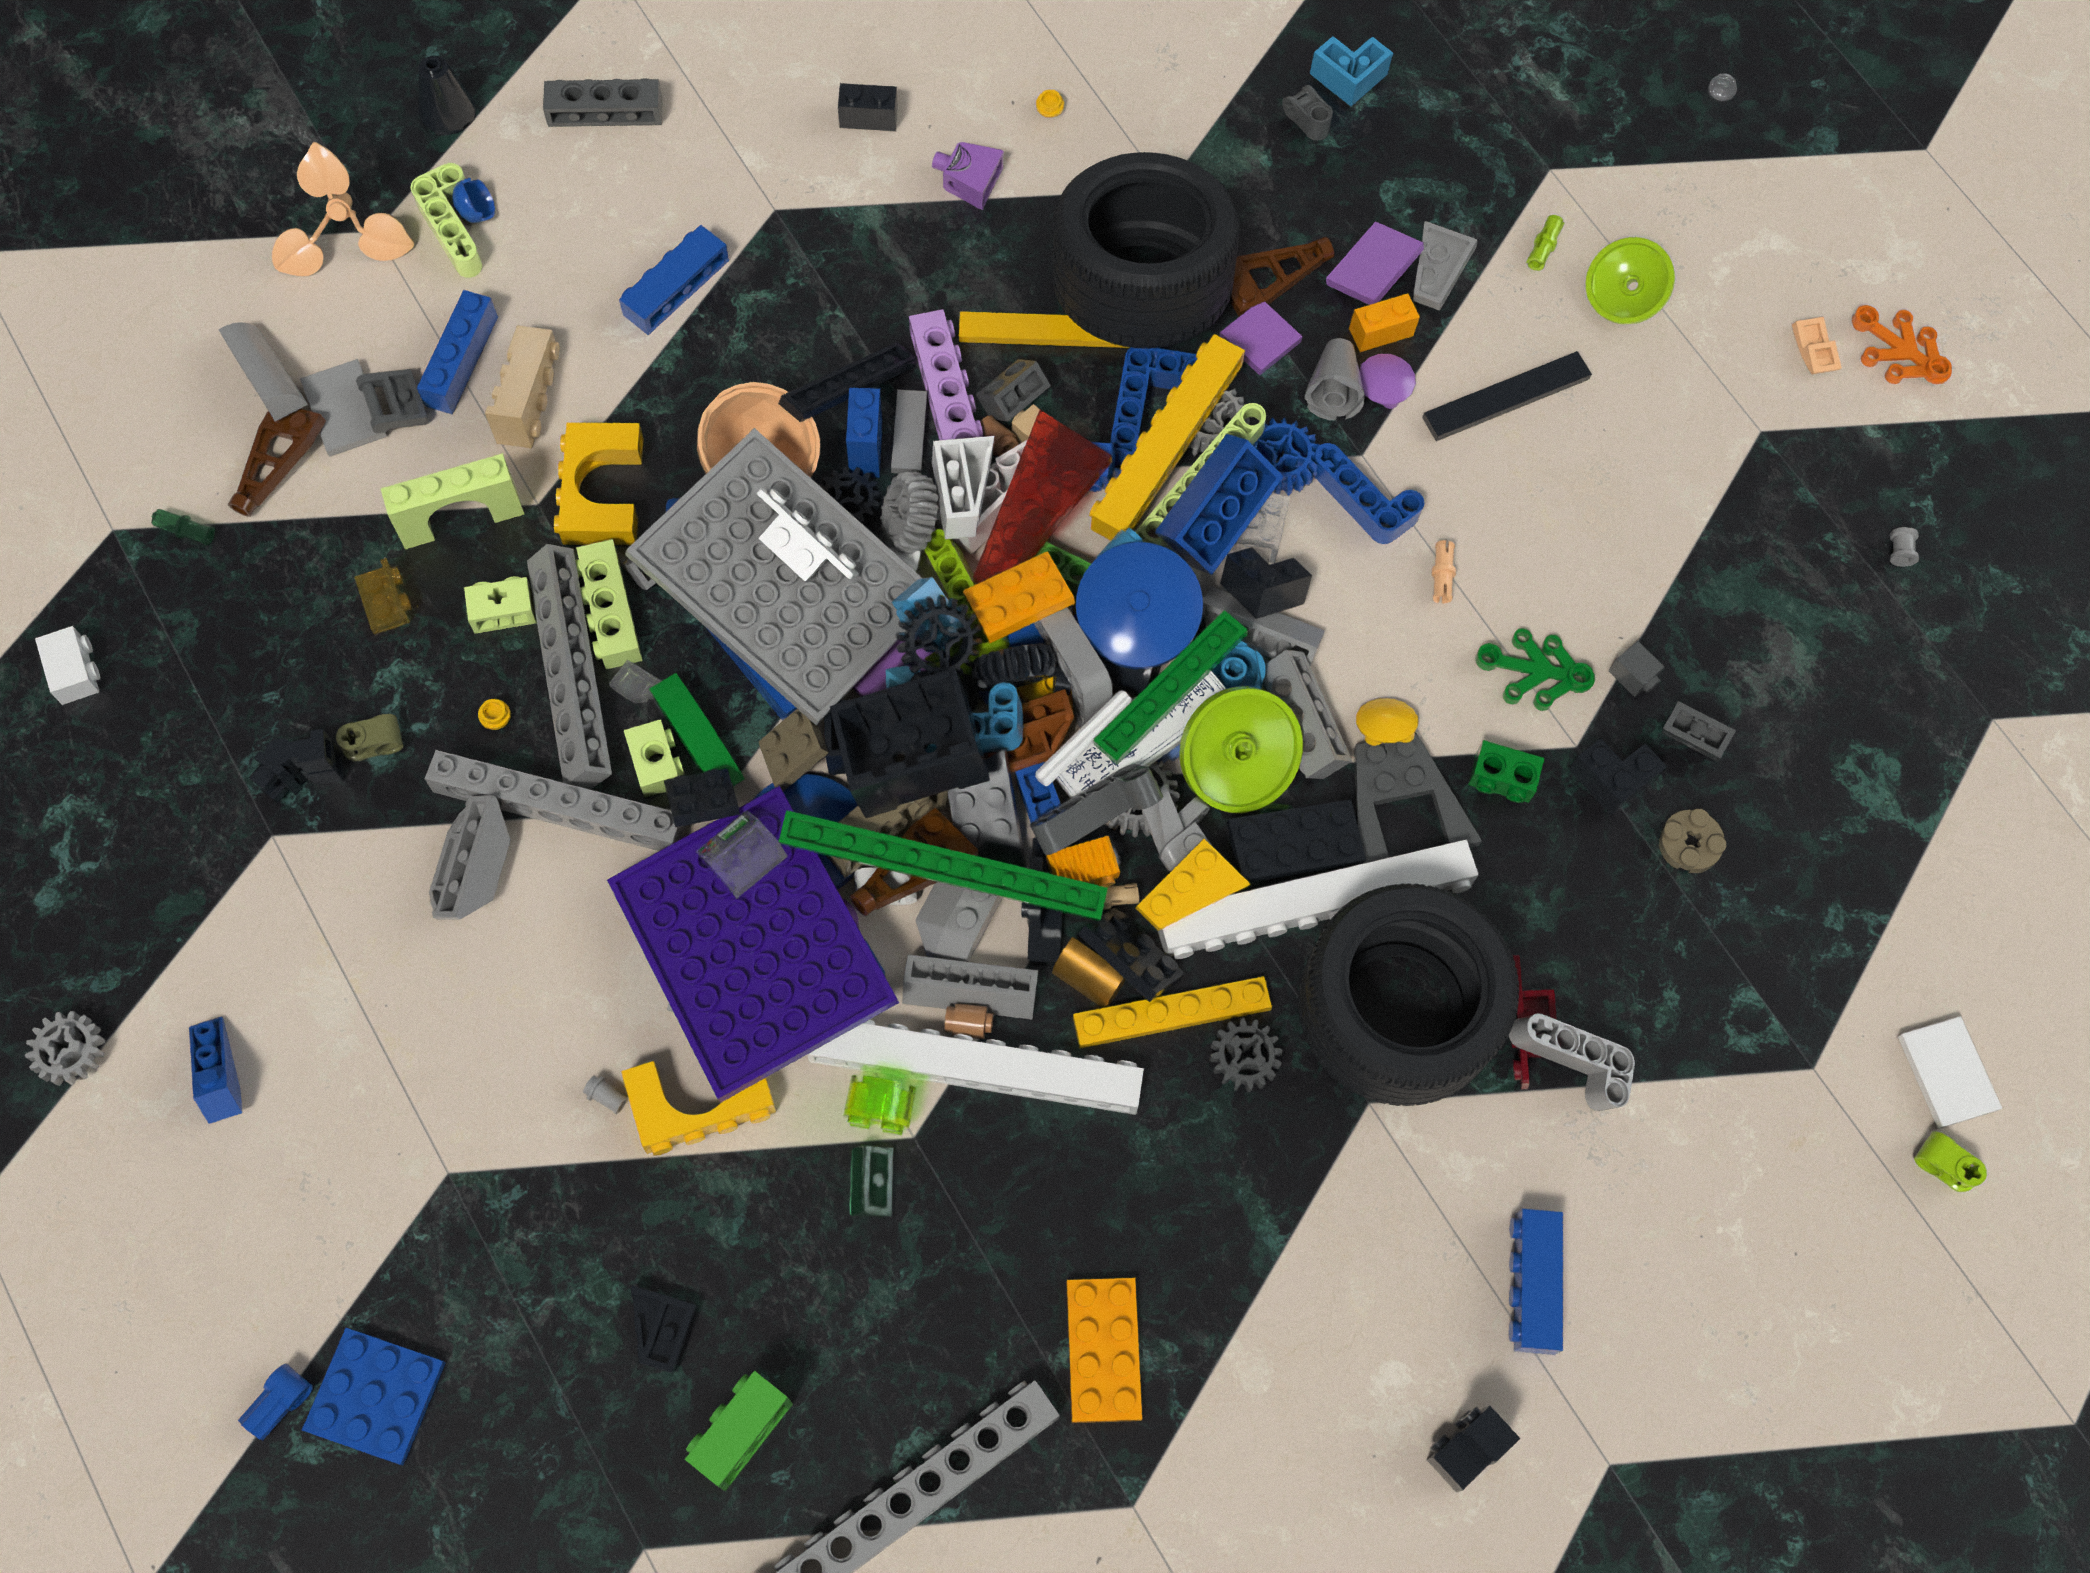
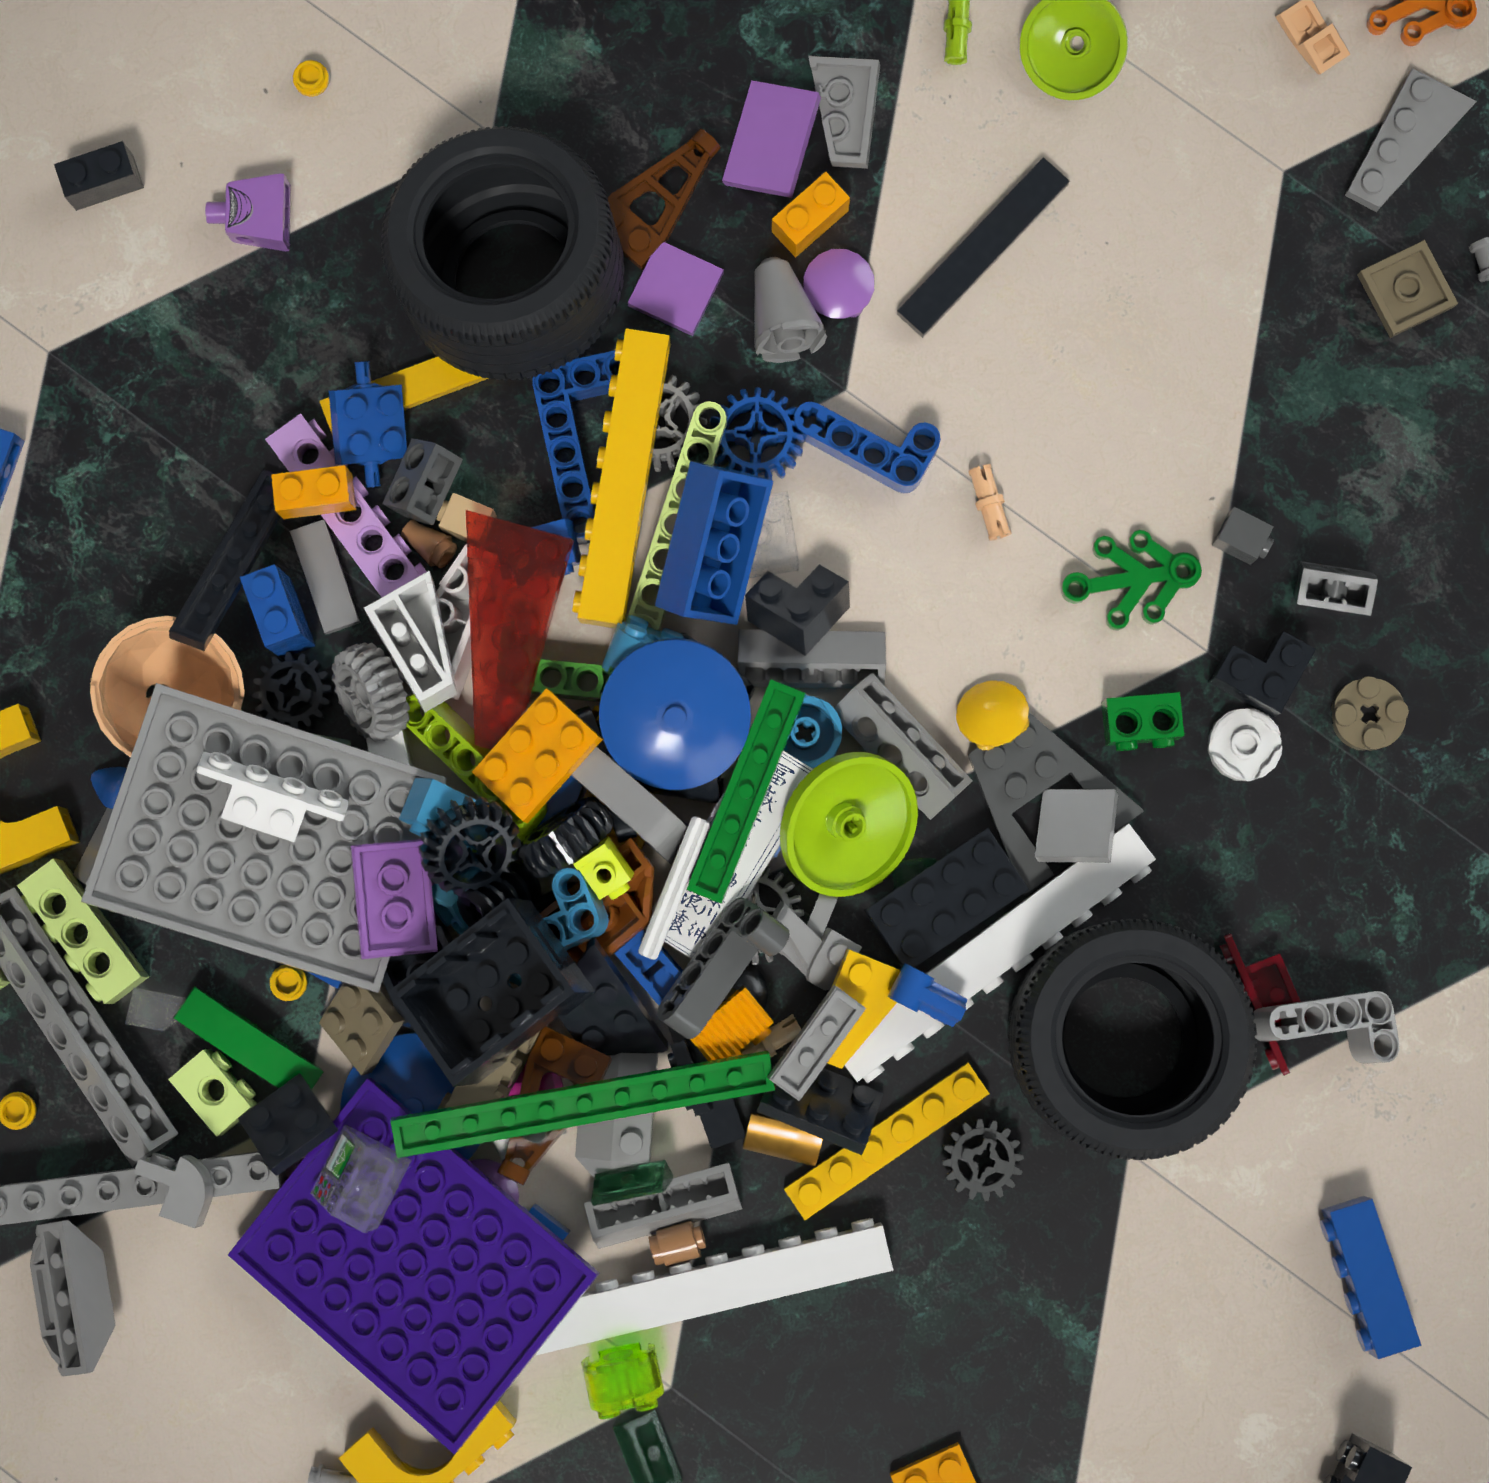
camera: 15 degrees left, 15 degrees up
(602, 807) = (188, 1183): none -> light grey brick
(748, 704) = (288, 983): none -> yellow plate
(860, 655) = (392, 900): none -> medium lavender tile
(929, 359) = (313, 492): none -> light orange brick
(954, 949) = (631, 1182): none -> clear green slope
(990, 334) = (367, 424): none -> blue plate
(1045, 707) = (607, 857): none -> neon yellow brick
(1149, 895) = (816, 1042): none -> light grey tile
(1247, 890) = (921, 993): none -> blue piece
(1423, 826) = (1076, 825): none -> light grey tile
(1581, 825) = (1244, 744): none -> white tile
(1830, 544) = (1407, 289): none -> dark tan plate
(1874, 435) = (1411, 130): none -> light grey wing

